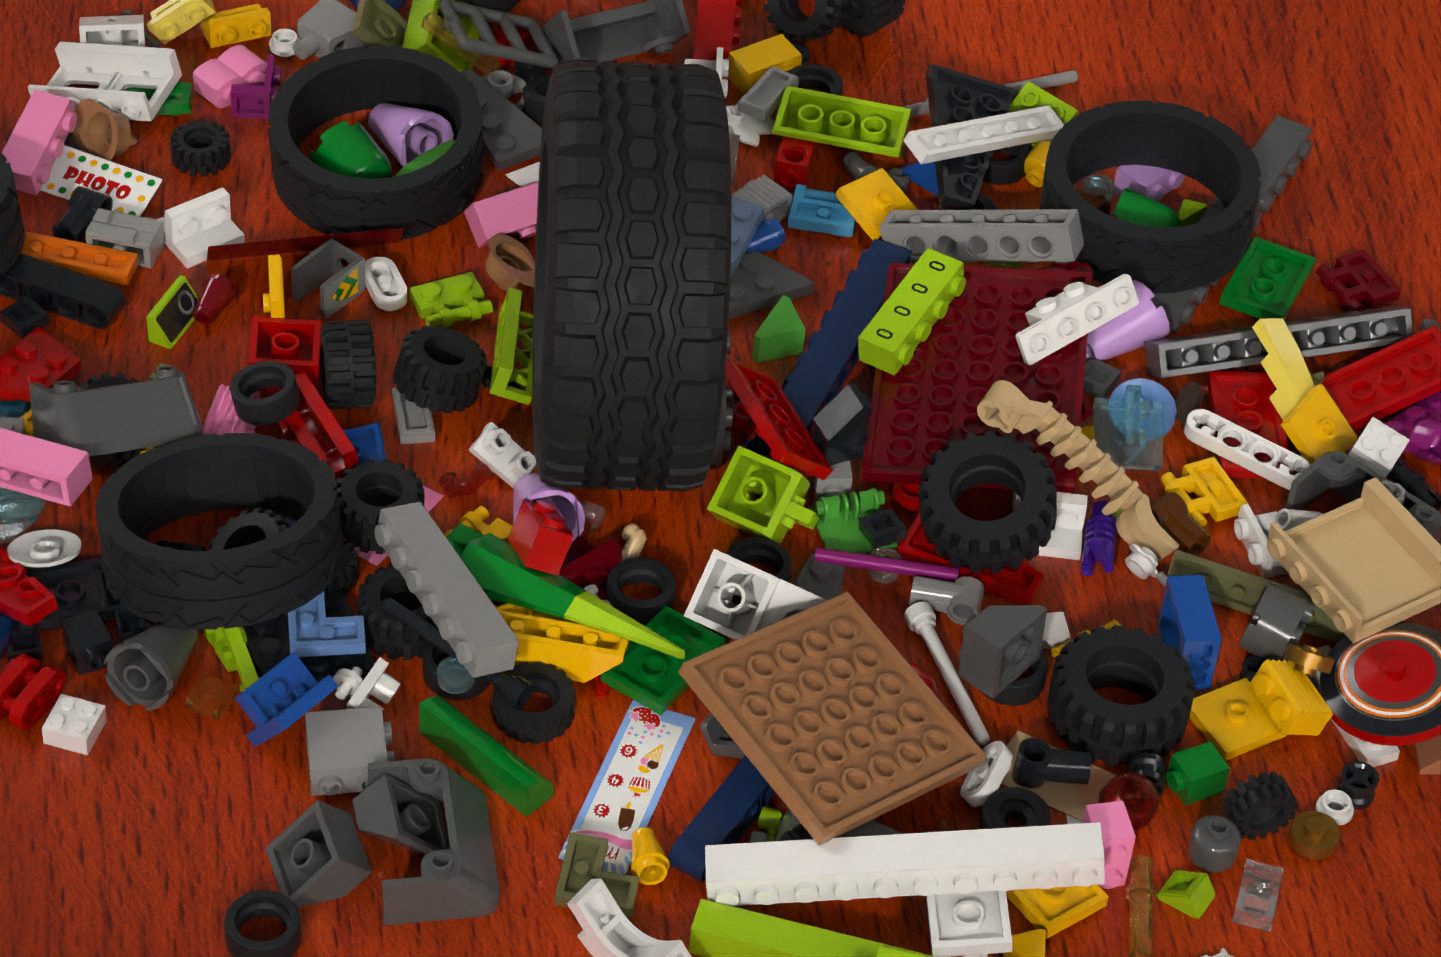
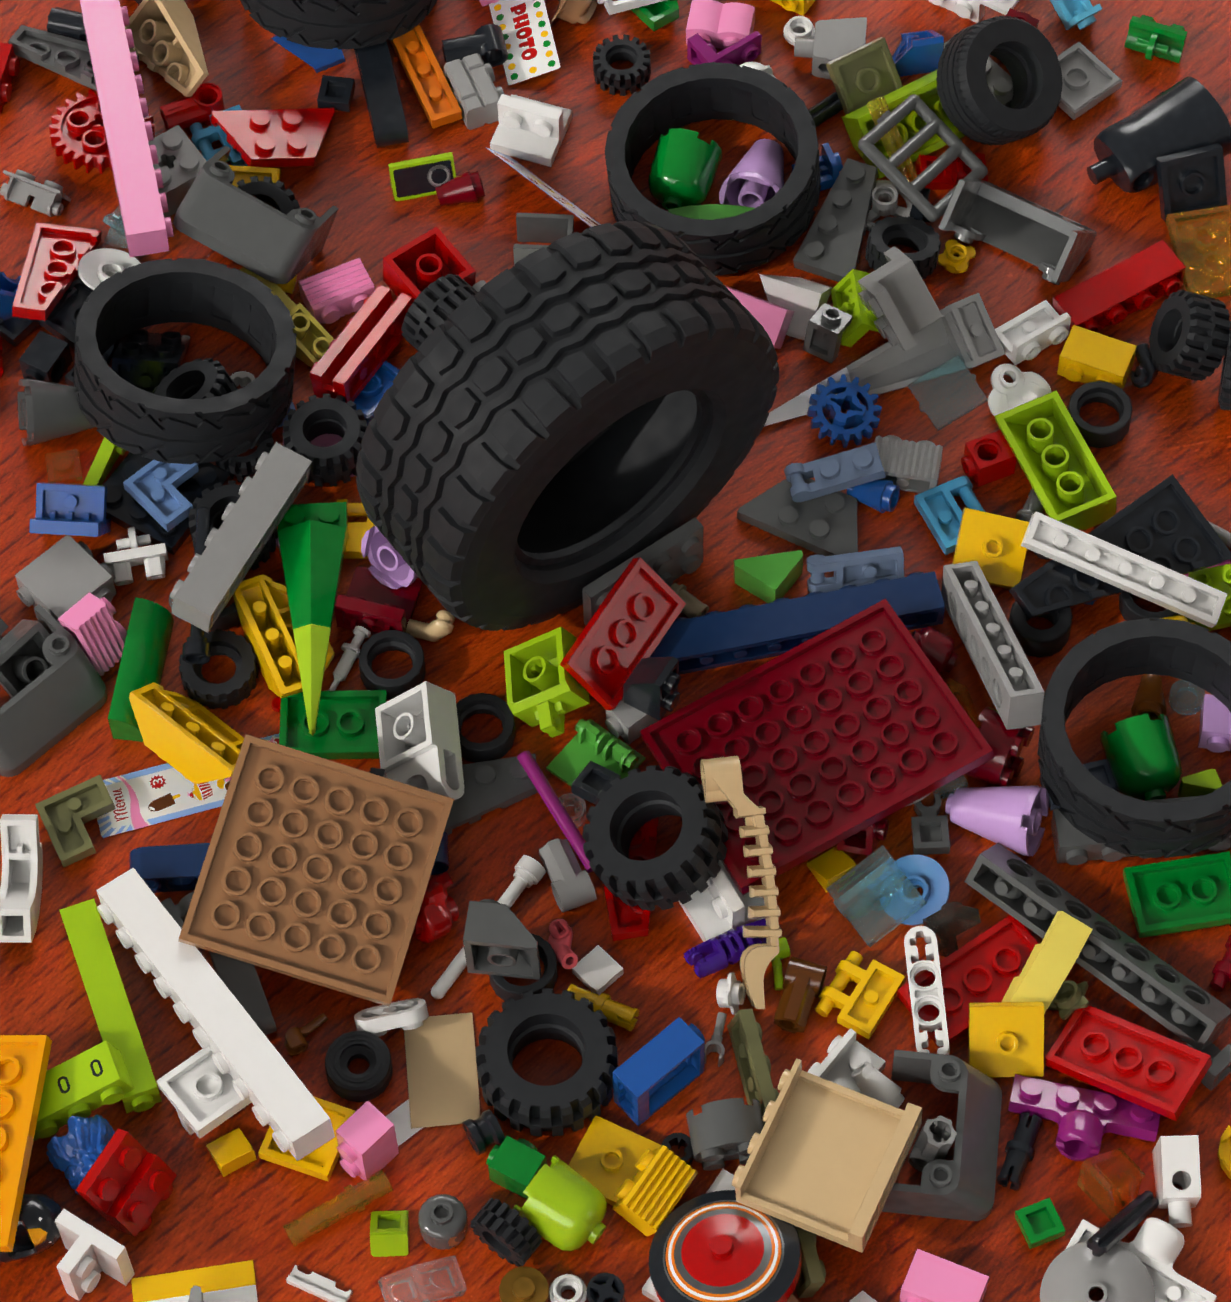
camera: 60 degrees right, 15 degrees up
(262, 376) = (361, 307): black tyre -> none
(274, 300) = (479, 227): yellow plate -> none
(422, 738) = (96, 631): none -> bright pink brick
(540, 536) = (352, 561): red brick -> none
(598, 753) = (185, 734): none -> yellow wedge
(648, 857) = (121, 840): yellow cone -> none
(766, 93) = (1038, 382): light grey tile -> none
(823, 284) = (854, 568): none -> sand blue plate
(911, 311) = (828, 649): lime brick -> none
(1040, 763) = (437, 1058): black piece -> none
(1072, 315) = (917, 766): white bracket -> none
(1137, 794) = (437, 1134): clear red hair -> none
(1264, 748) = (564, 1206): none -> lime cylinder
(1308, 659) = (689, 1177): pearl gold wheel -> none
(1378, 447) = (1016, 1096): white piece -> none

